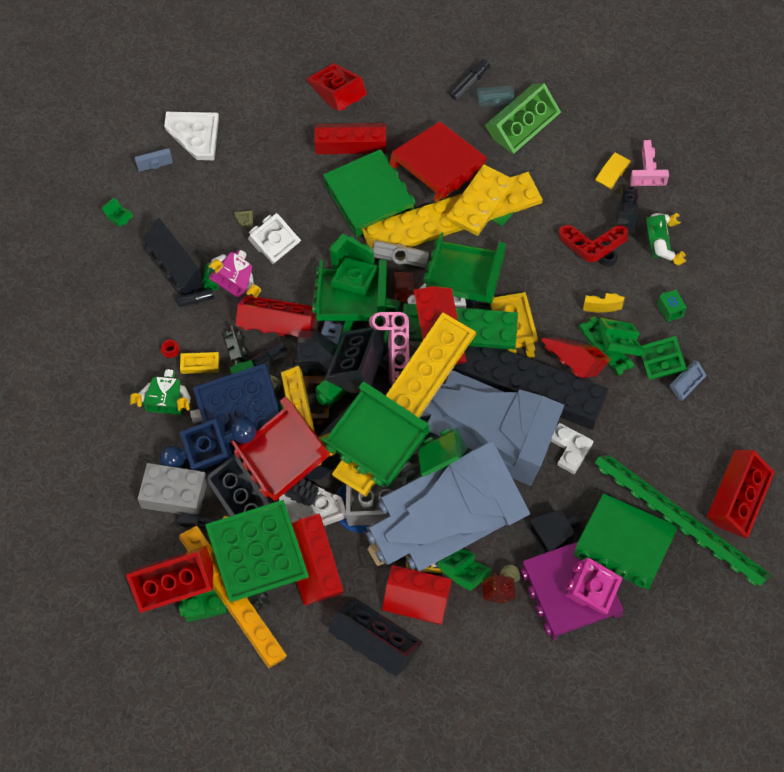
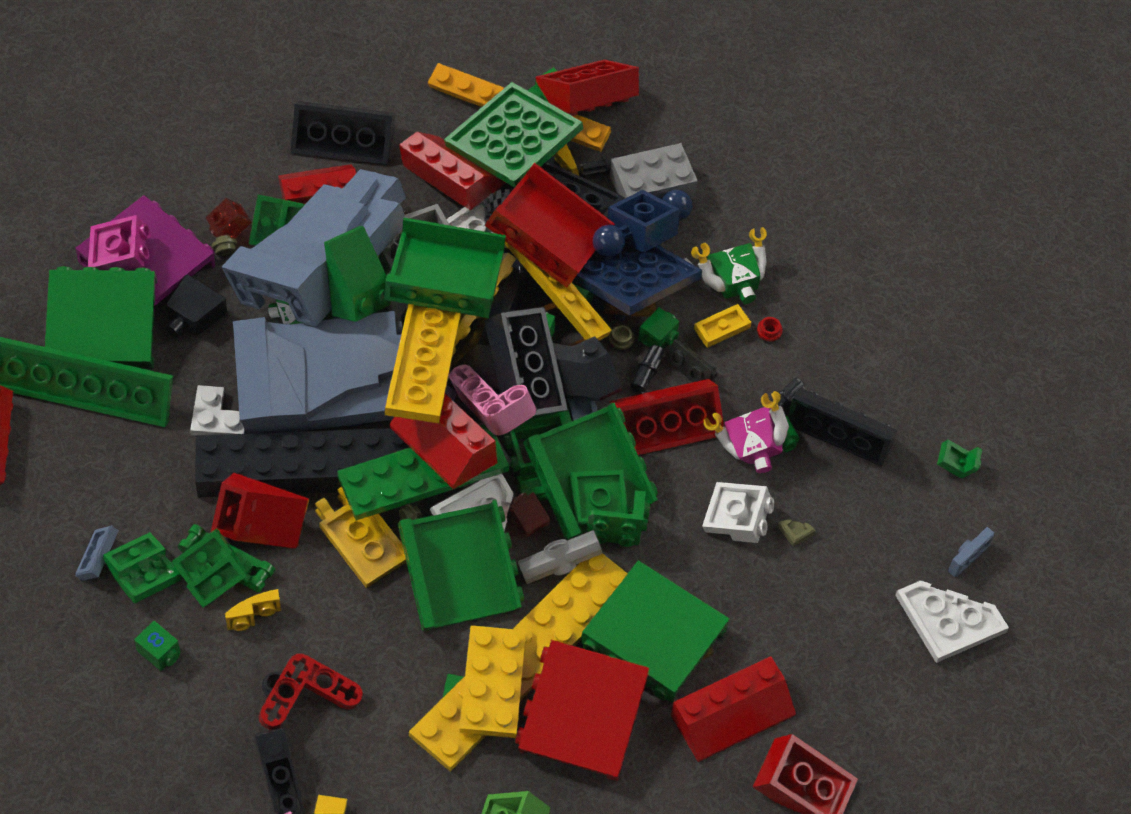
camera: 145 degrees right, 5 degrees down
(660, 238) = (213, 737): torso -> none

